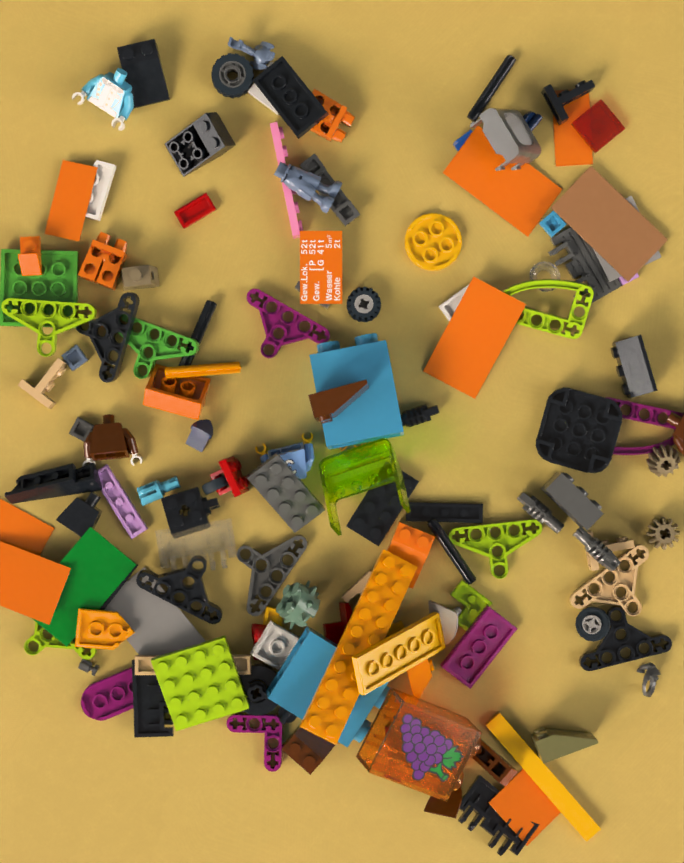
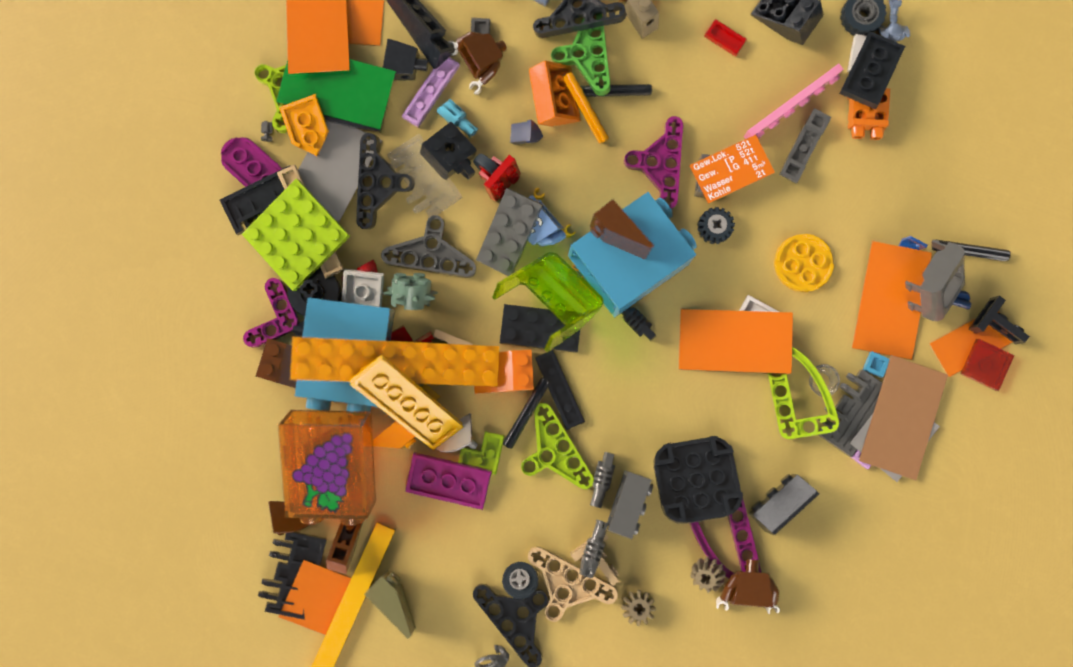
camera: 65 degrees right, 5 degrees down
(270, 614) = (388, 275): yellow tile -> none
(306, 184) = (802, 121): sand blue piece -> none

